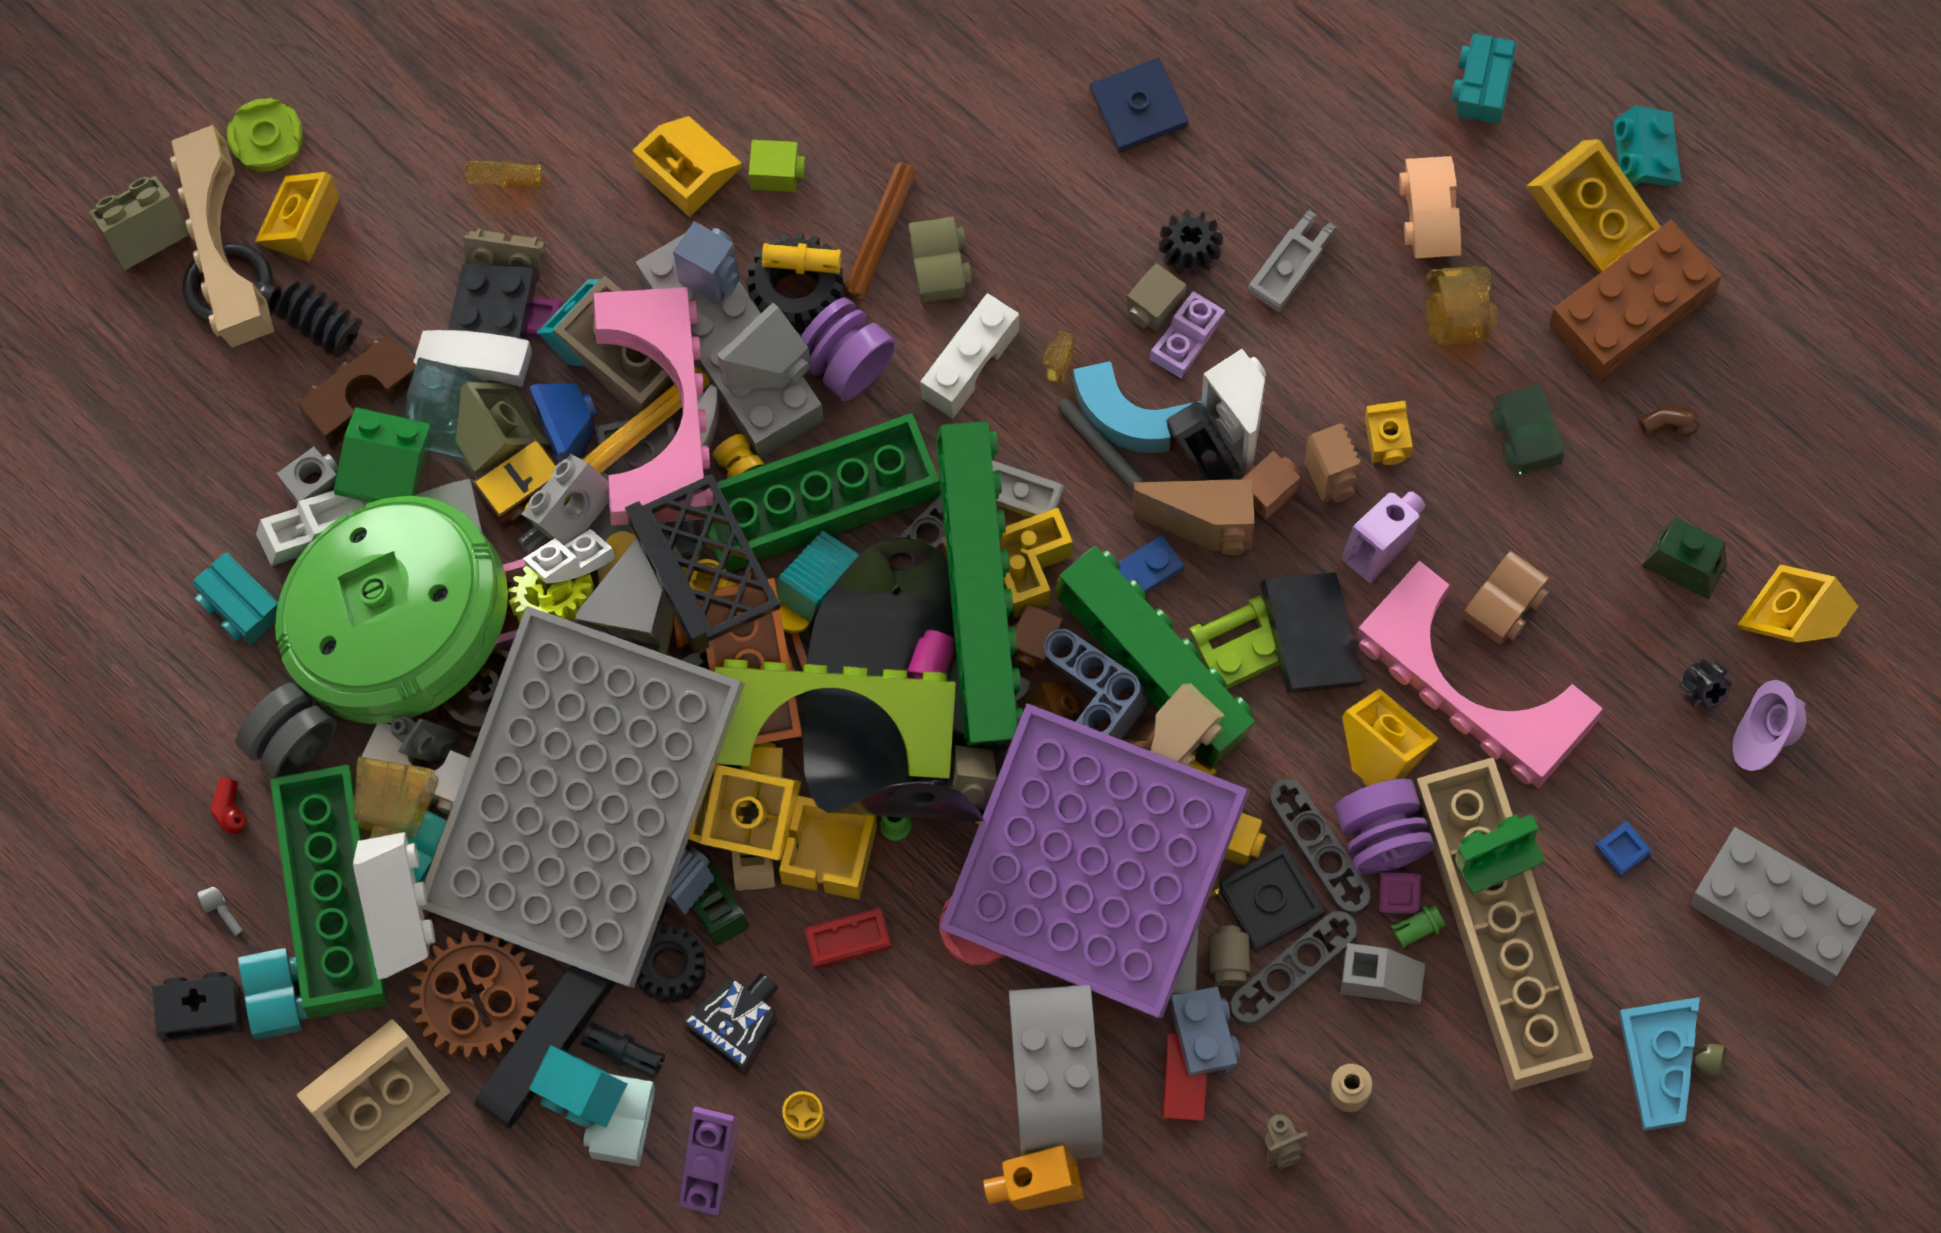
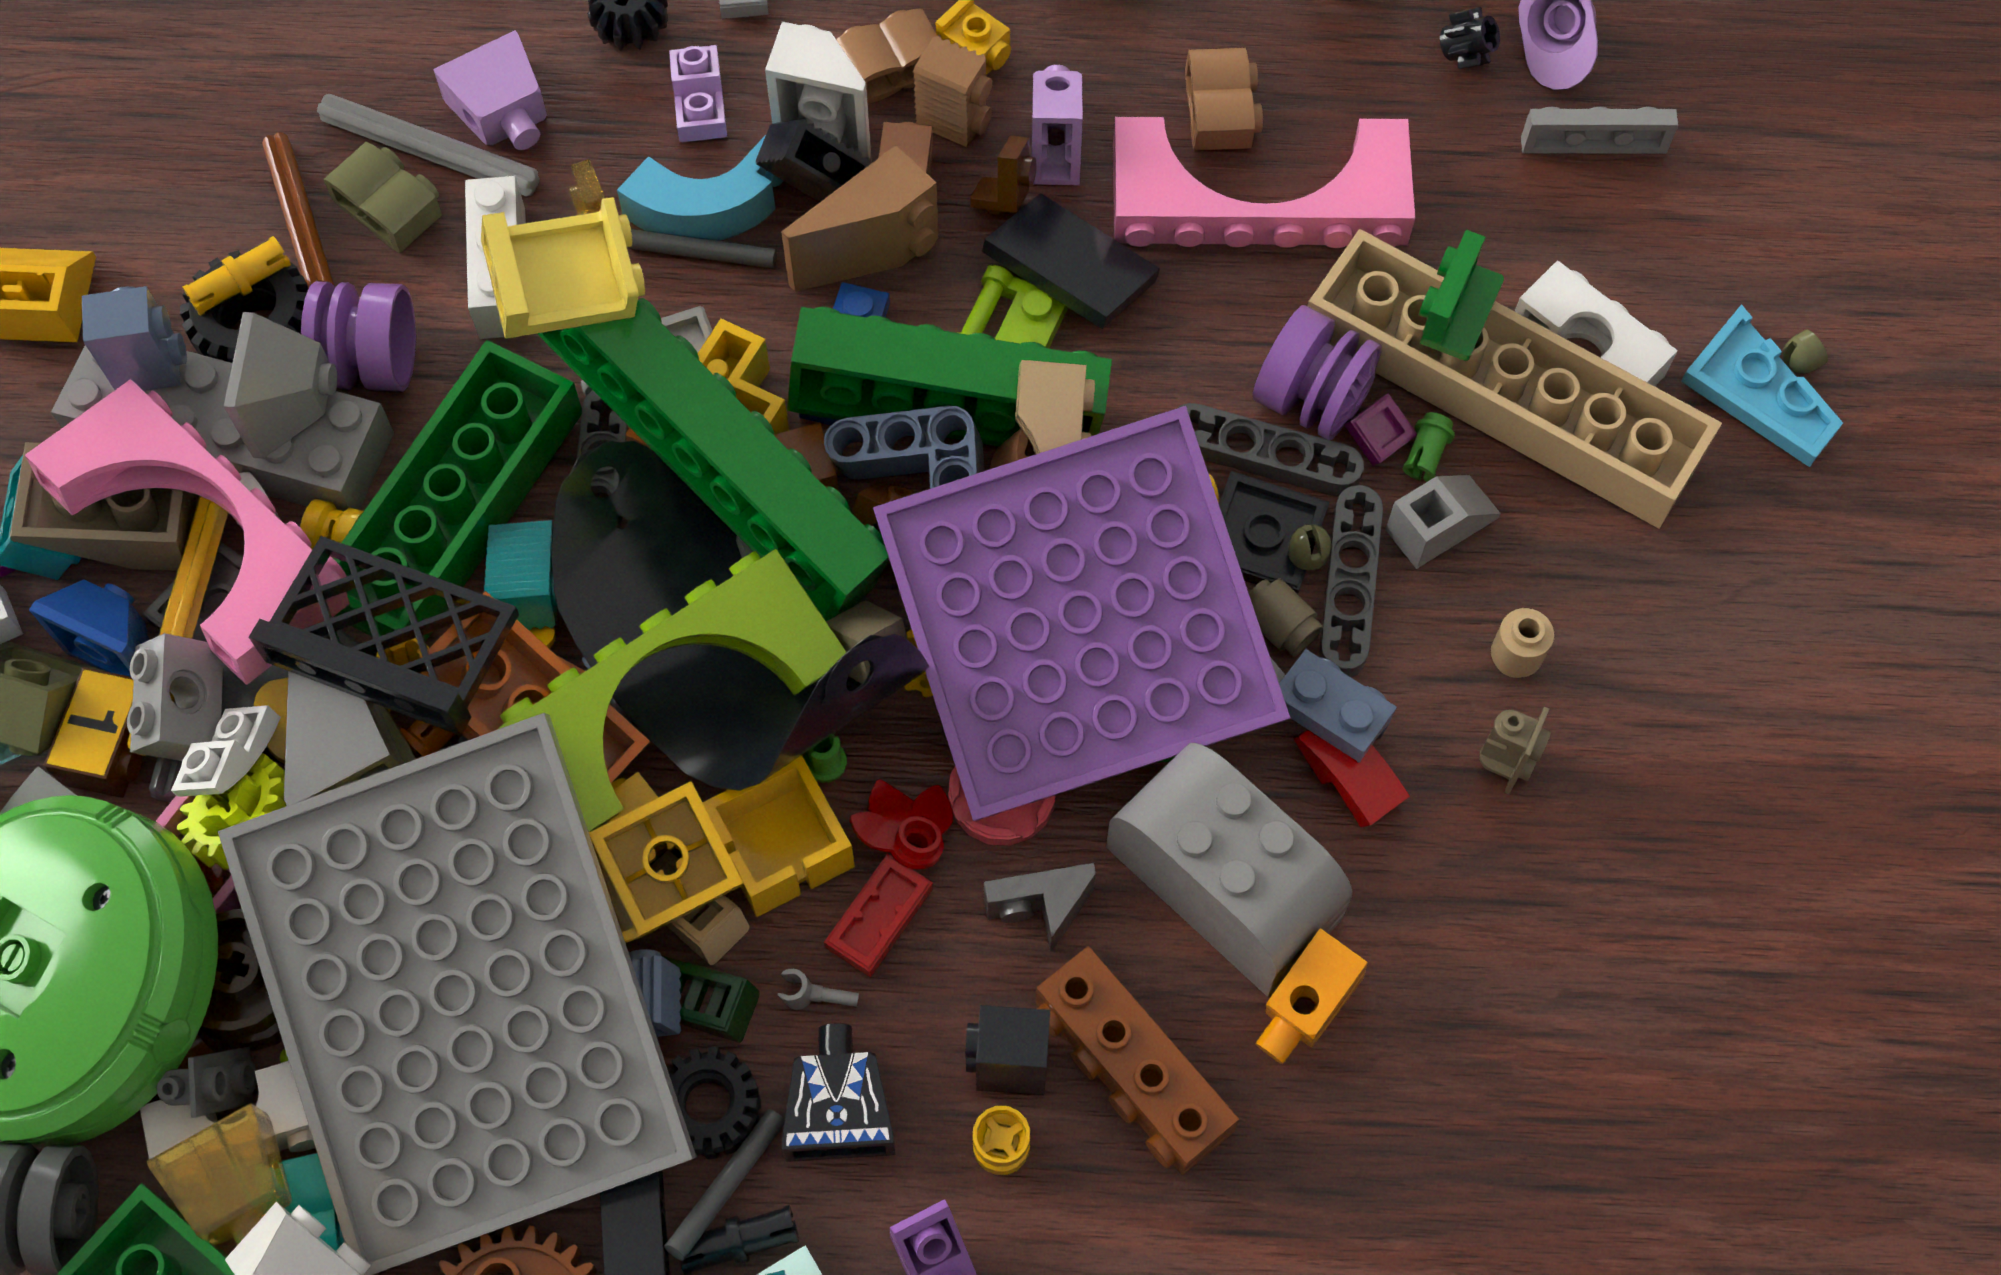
camera: 45 degrees left, 5 degrees down
(640, 1015) = (724, 1185): none -> dark grey bar
(774, 949) = (811, 992): none -> light grey hand
(775, 166) = (132, 228): lime brick -> none
(846, 1070) = (1009, 1049): none -> black brick
(906, 893) = (897, 821): none -> red plate
(912, 1134) = (1135, 1062): none -> dark orange brick
(932, 654) = (714, 552): dark pink brick -> none
(952, 1010) = (1055, 892): none -> flat silver slope
(958, 425) = (561, 270): none -> light yellow panel
(994, 242) = (424, 143): none -> light grey axle
(1063, 240) = (495, 92): none -> lavender torso
(1155, 298) = (638, 78): dark tan brick -> none
(1291, 932) = (1300, 551): none -> olive hinge
(1317, 549) = (1014, 178): none -> reddish brown bracket
(1322, 402) = (888, 51): none -> medium nougat brick
(1384, 739) = (1238, 305): yellow slope -> none
(1587, 907) = (1575, 309): none -> white arch
(1623, 849) = (1537, 236): blue tile -> none
(1723, 808) = (1599, 130): none -> light grey plate
(1782, 907) = (1729, 171): light grey brick -> none

